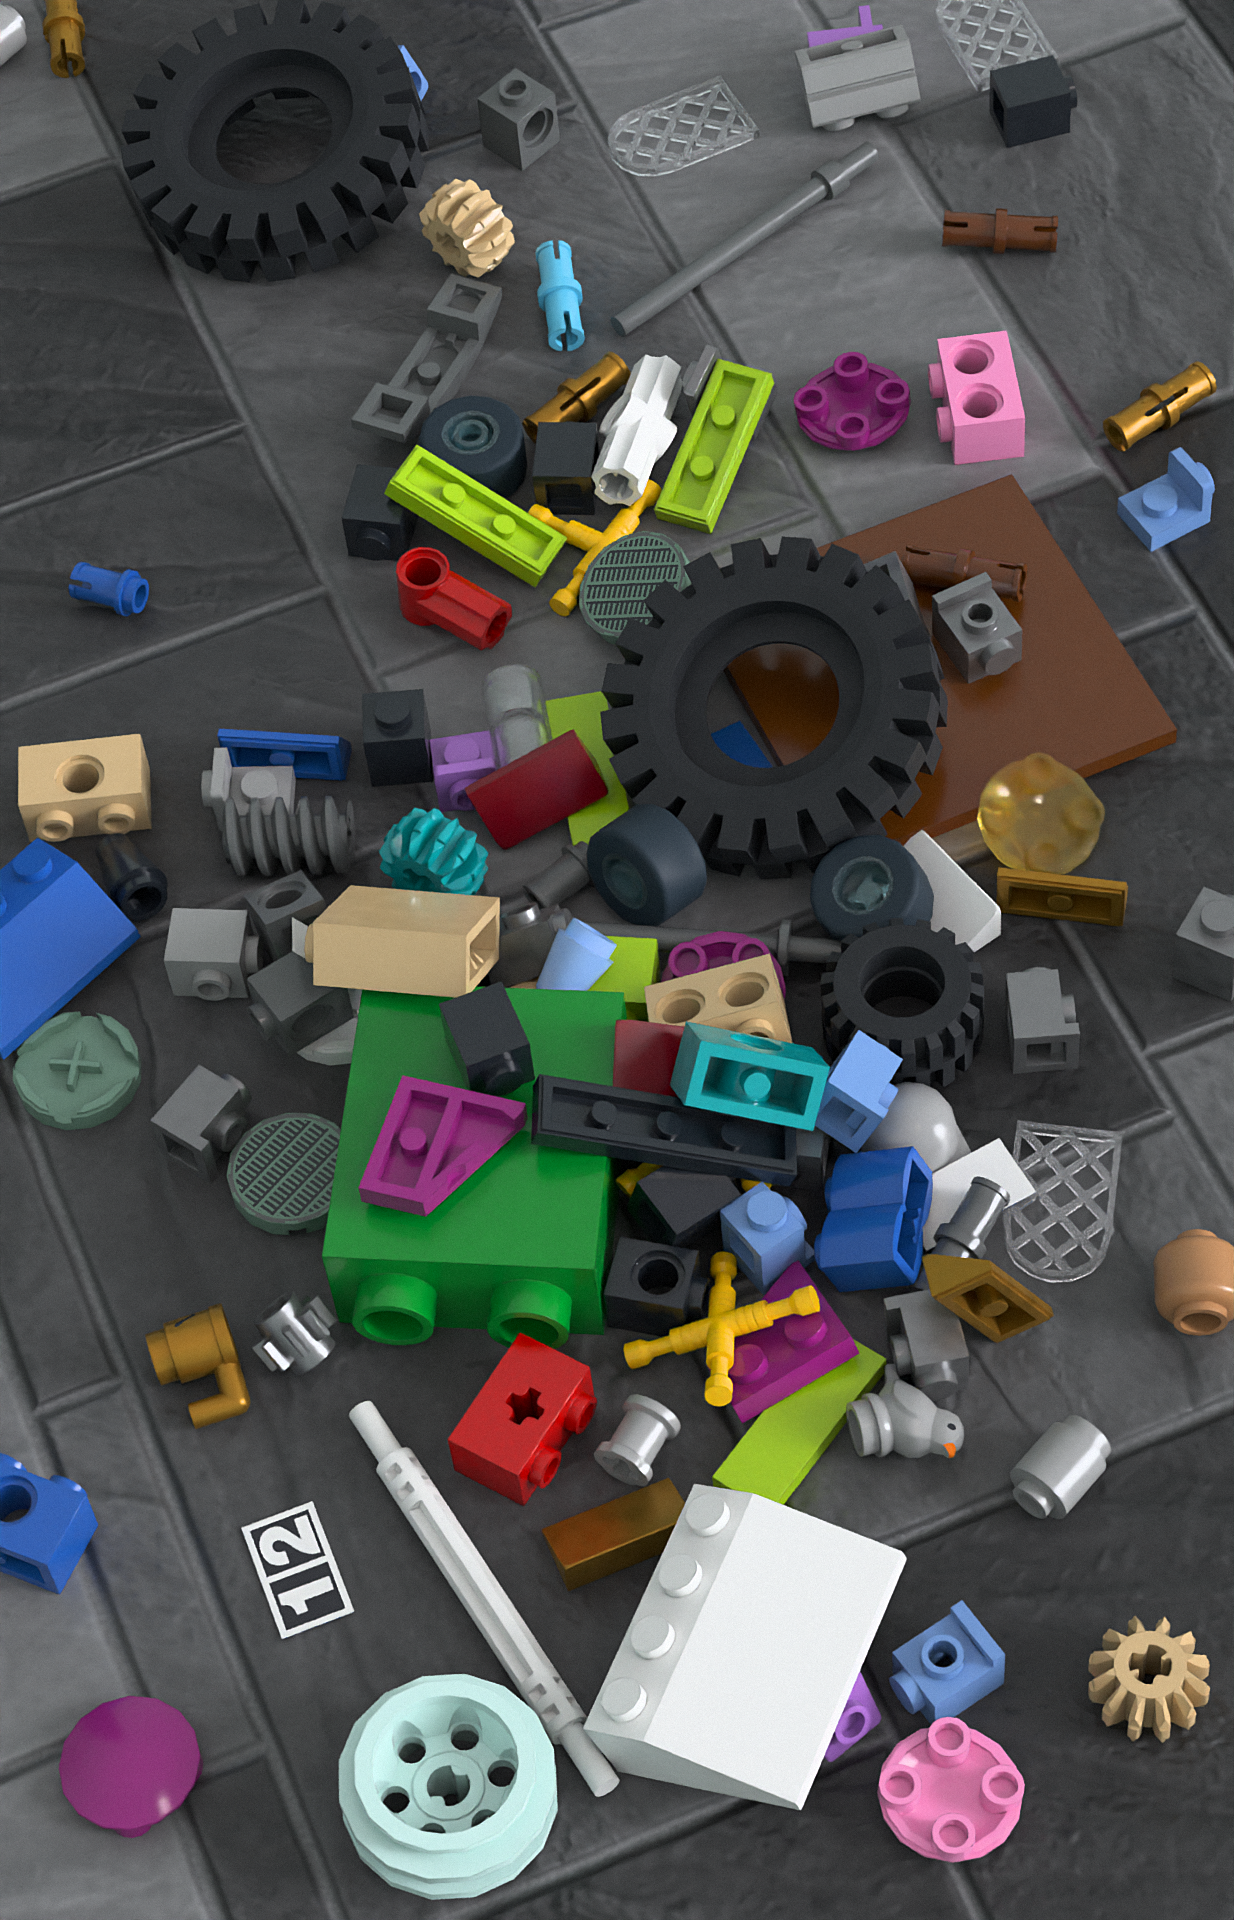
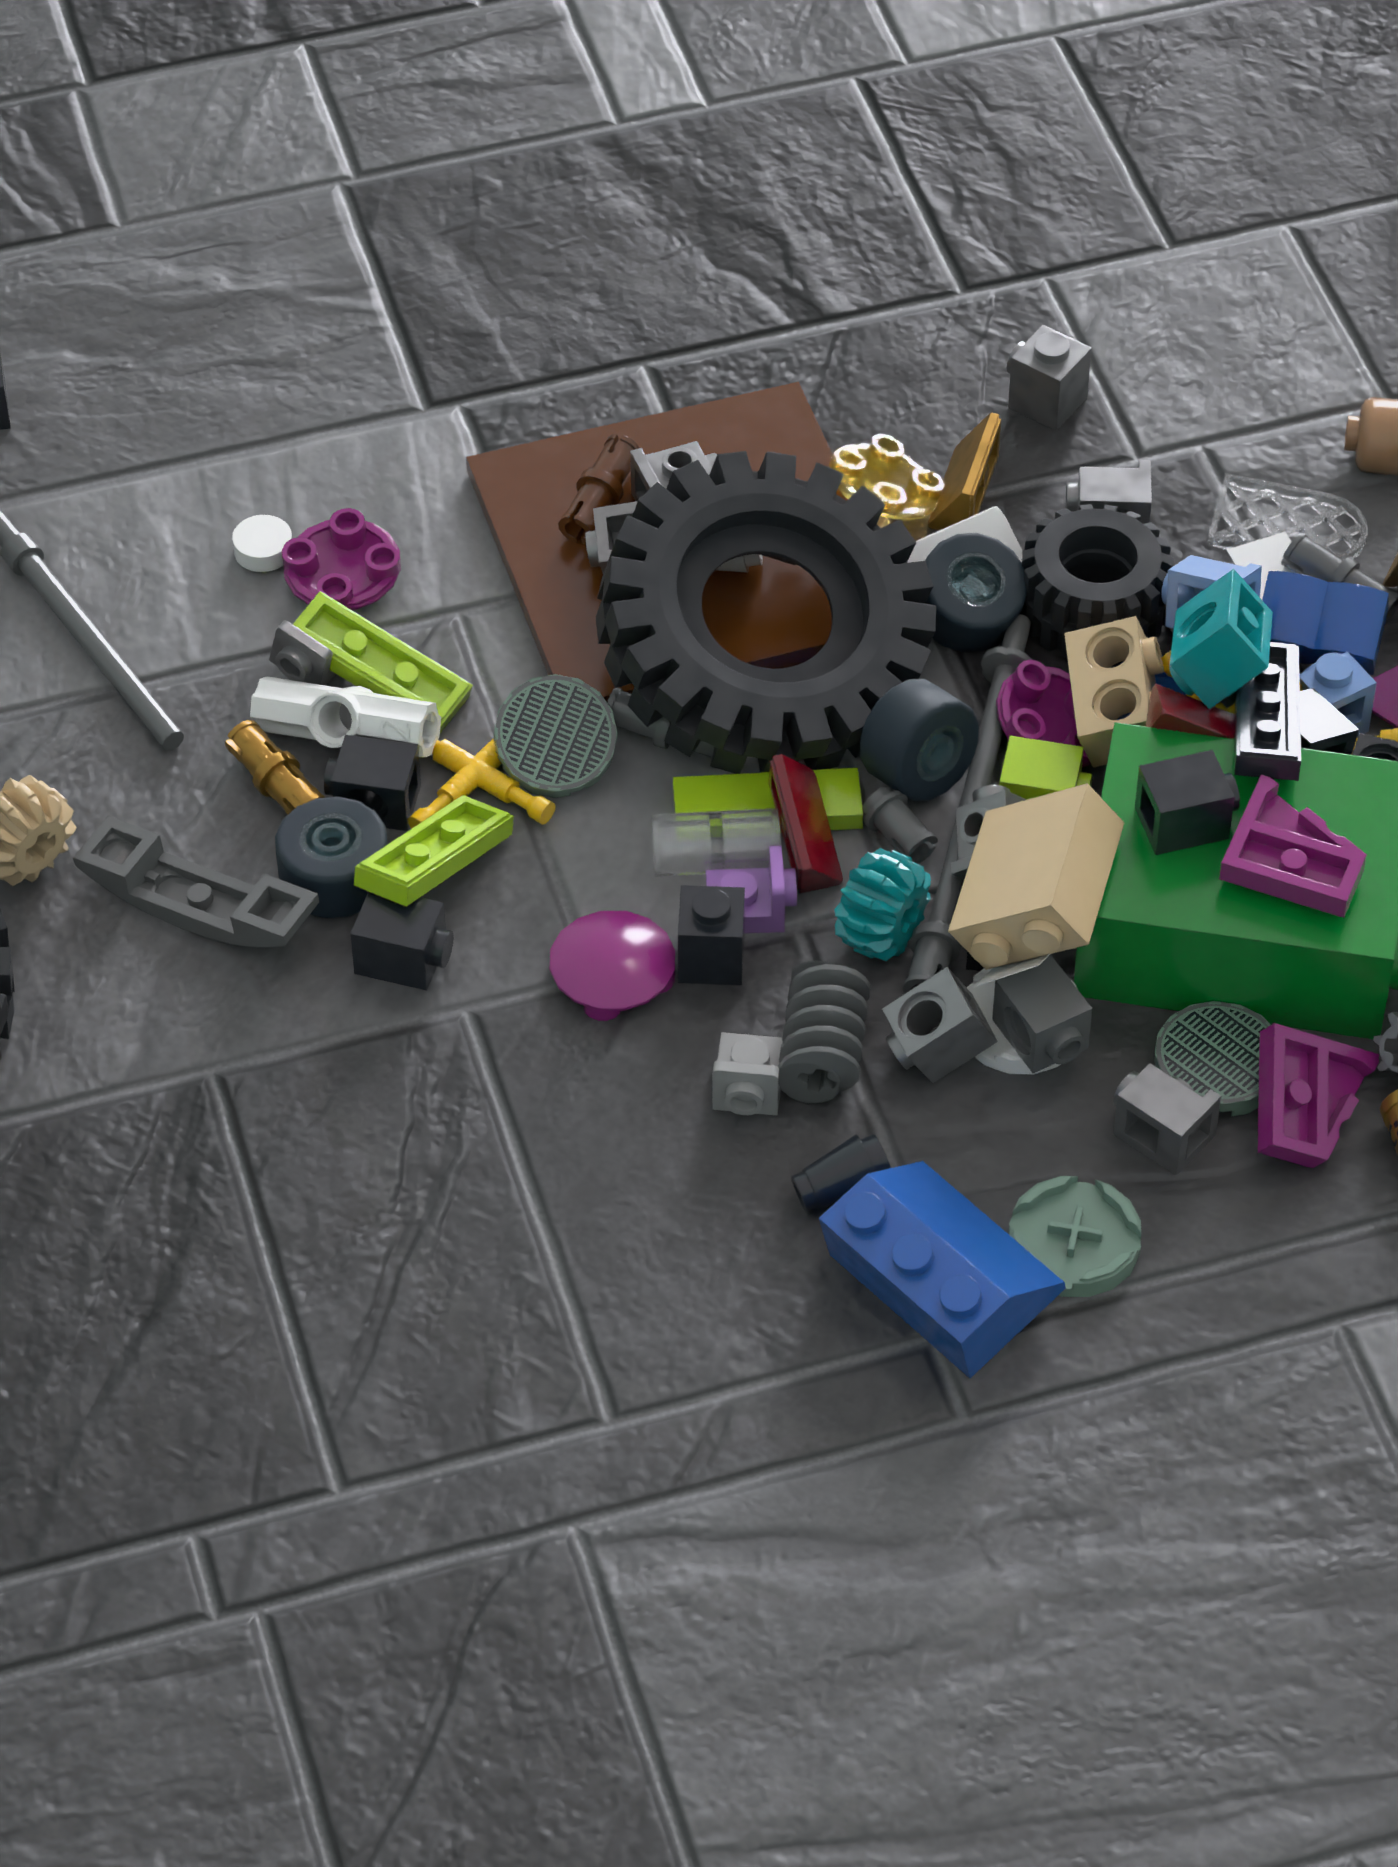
camera: 90 degrees left, 5 degrees down
(84, 788) = (723, 1241): tan brick -> none
(123, 591) = (447, 1177): blue pin -> none
(212, 953) = (959, 1104): light grey brick -> none
(234, 1240) = (1306, 1092): none -> magenta wing
(309, 754) = (697, 1040): blue slope -> none
(374, 664) = (612, 962): none -> magenta dish
(438, 596) = (526, 892): red piece -> none
(559, 295) = (122, 777): medium azure pin -> none
(576, 958) = (1043, 771): light blue cone -> none
(879, 341) = (260, 542): none -> white tile
(979, 398) = (366, 464): bright pink brick -> none
(1000, 231) = (142, 432): reddish brown pin -> none
(1169, 503) = (525, 355): medium blue bracket -> none
(1186, 387) = (404, 349): pearl gold pin -> none

